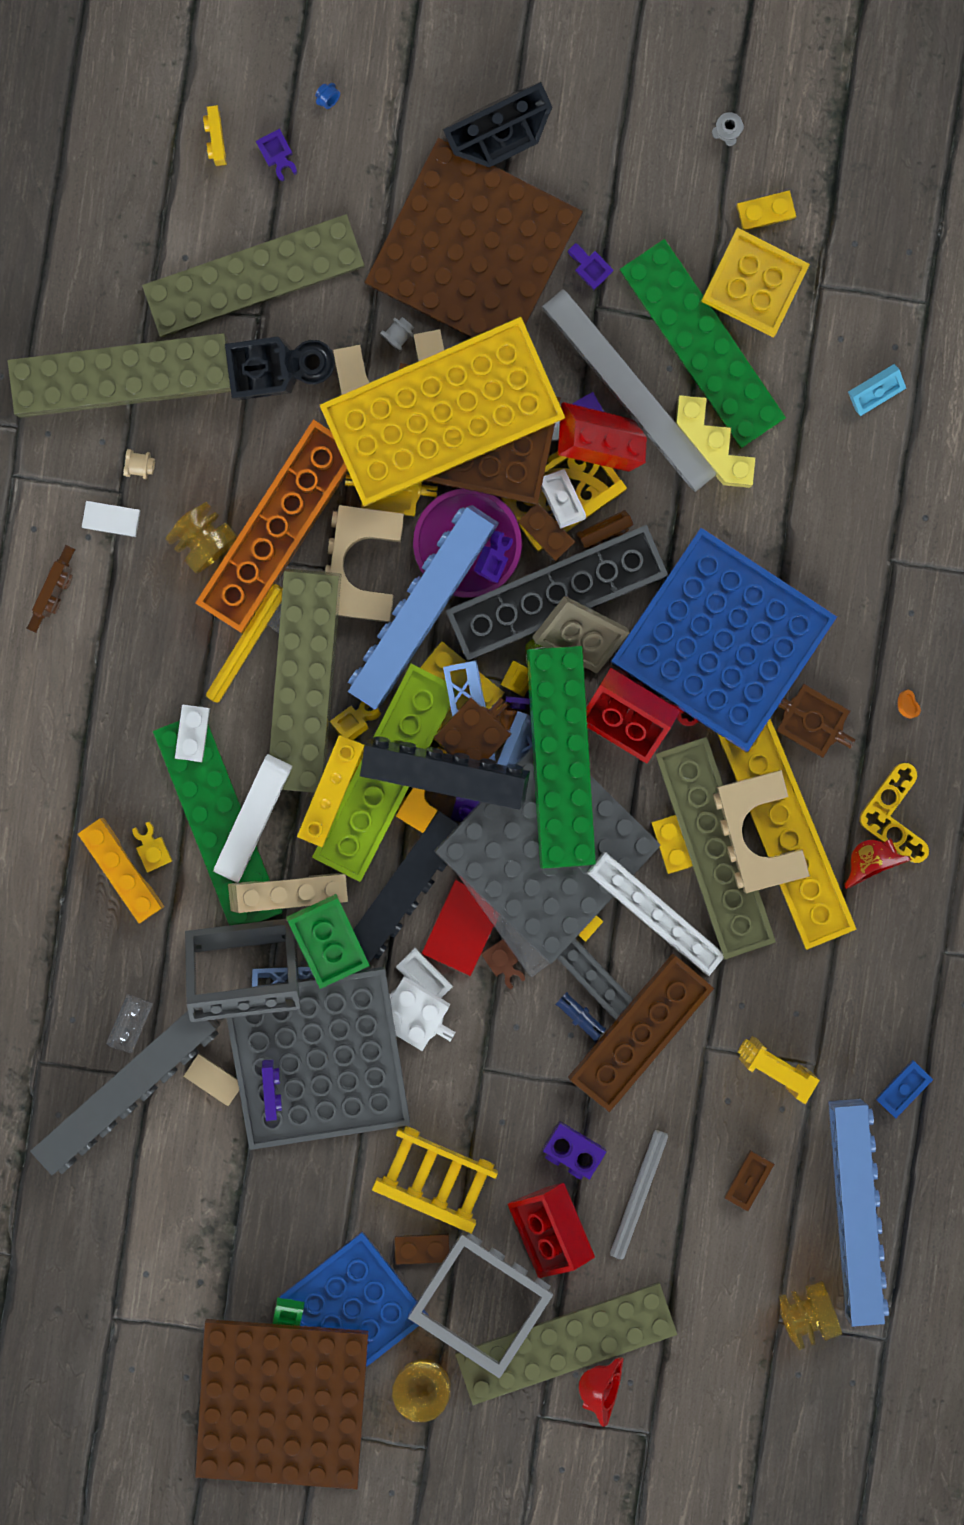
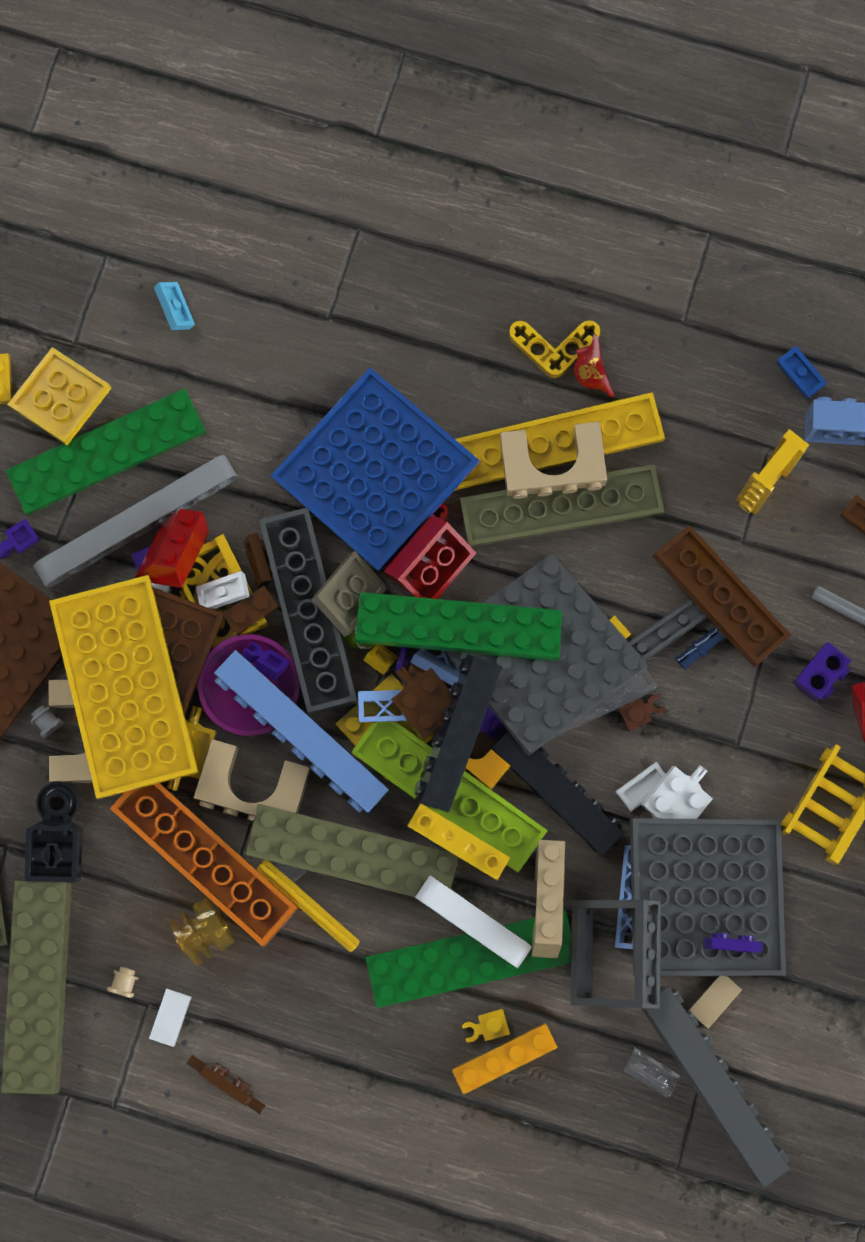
camera: 80 degrees left, 10 degrees down
(192, 733) = (384, 969): white plate -> none
(327, 941) = (599, 865): green plate -> none
(353, 722) = (397, 815): yellow plate -> none
(459, 931) = (605, 747): red tile -> none
(656, 913) = (614, 565): white tile -> none
(671, 844) = (555, 543): yellow plate -> none
(713, 443) = (196, 452): light yellow brick -> none
(814, 721) = (460, 402): reddish brown plate -> none
(907, 704) = (458, 320): orange piece -> none

